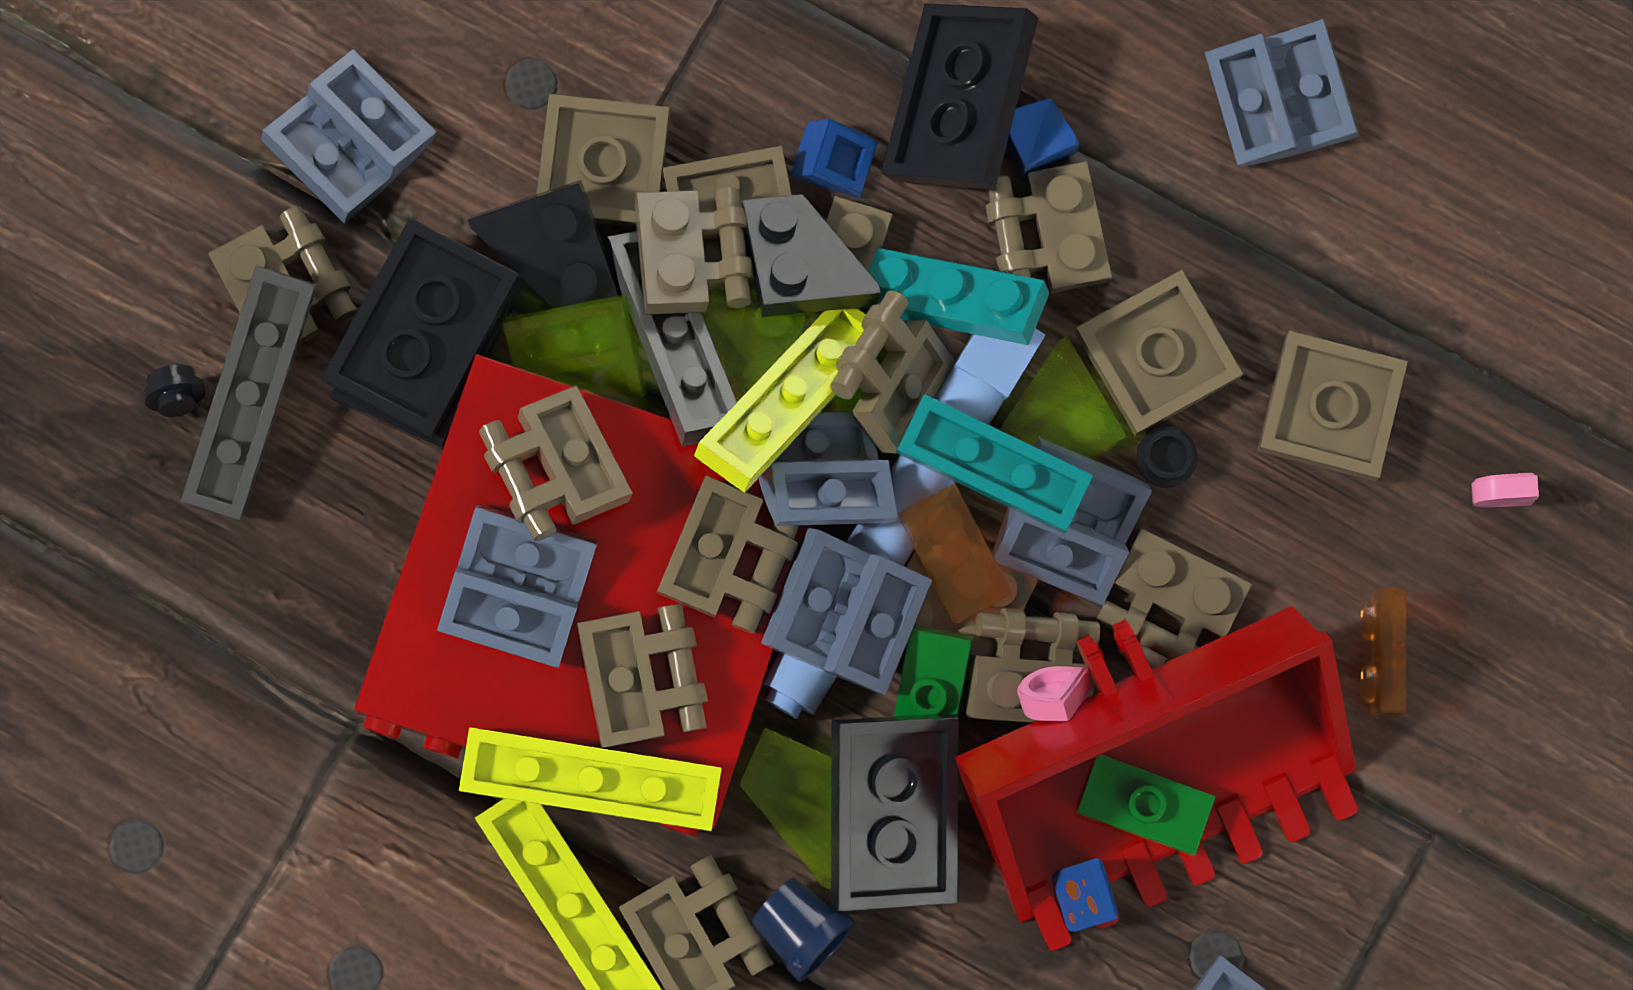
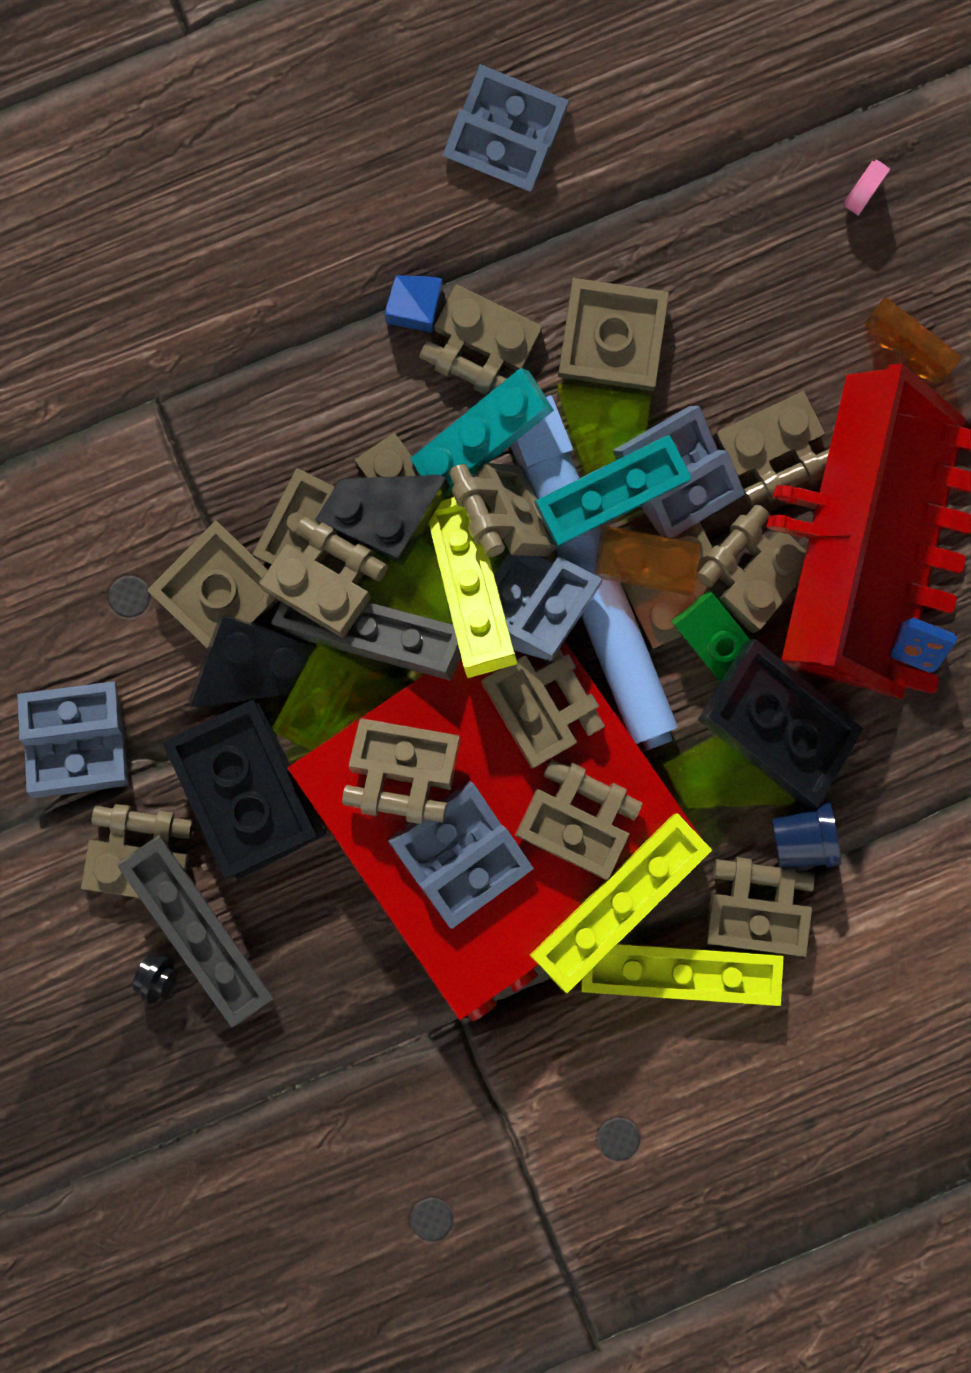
camera: 50 degrees left, 5 degrees up
(834, 157) = (327, 441): blue slope -> none
(846, 611) = (634, 657): sand blue slope -> none
(960, 95) = (353, 329): black plate -> none
(1054, 692) = (787, 566): bright pink tile -> none
(1145, 804) = (897, 563): green plate -> none
(1166, 457) = (682, 381): black plate -> none
(1332, 406) = (730, 253): dark tan plate -> none

